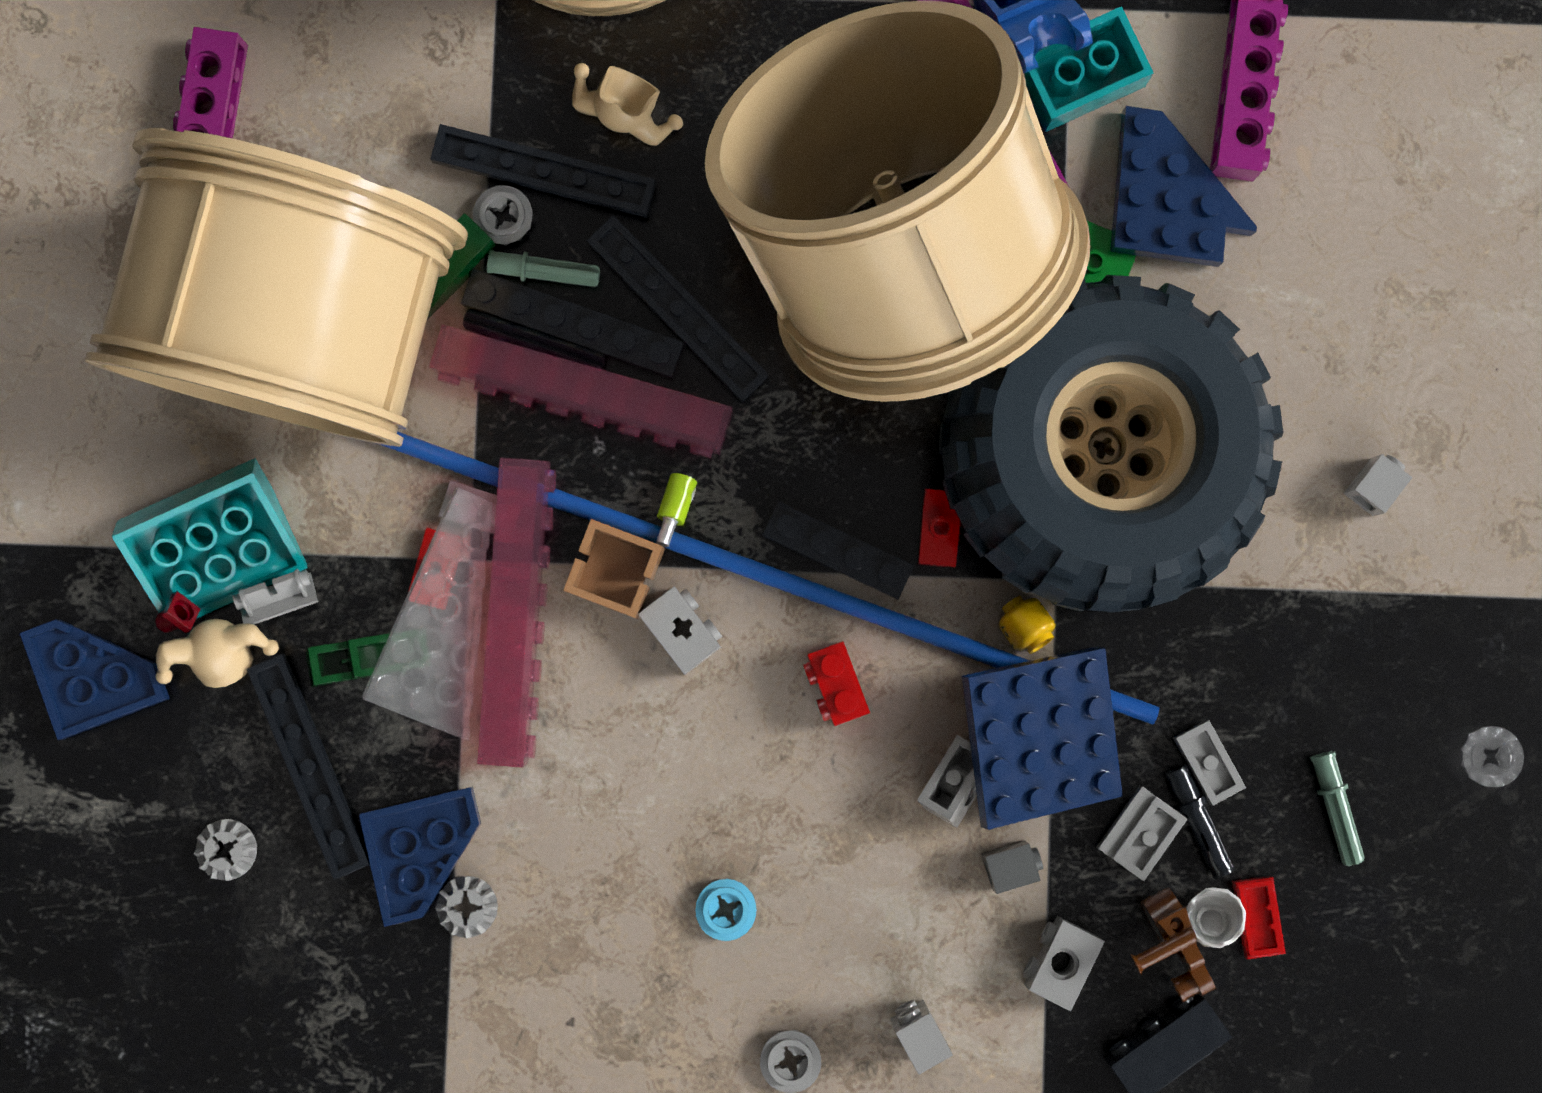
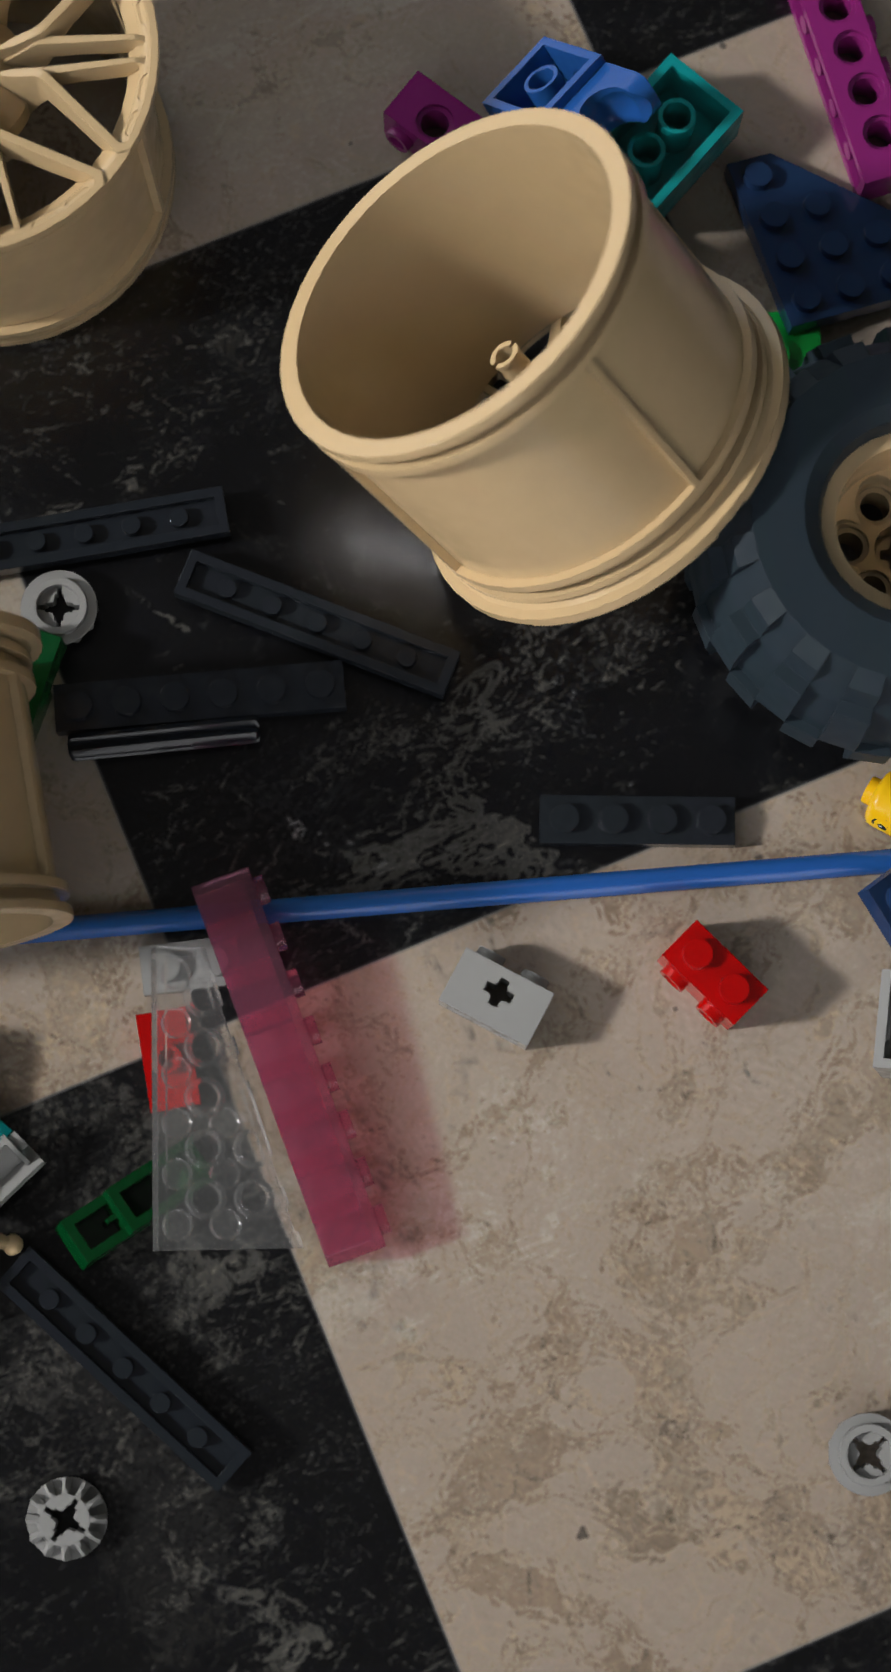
camera: 25 degrees left, 5 degrees down
(416, 849) = (301, 1407): dark blue plate -> none
(479, 894) = (401, 1427): light grey gear -> none
(543, 268) = (136, 648): sand green axle -> none
(580, 390) = (247, 769): clear pink brick -> none
(614, 569) = (385, 960): medium nougat piece -> none
(622, 104) = (143, 417): tan piece -> none
(675, 505) = (421, 854): lime piece -> none
(720, 927) = (729, 1303): medium azure gear -> none
(938, 531) = (743, 743): red plate -> none

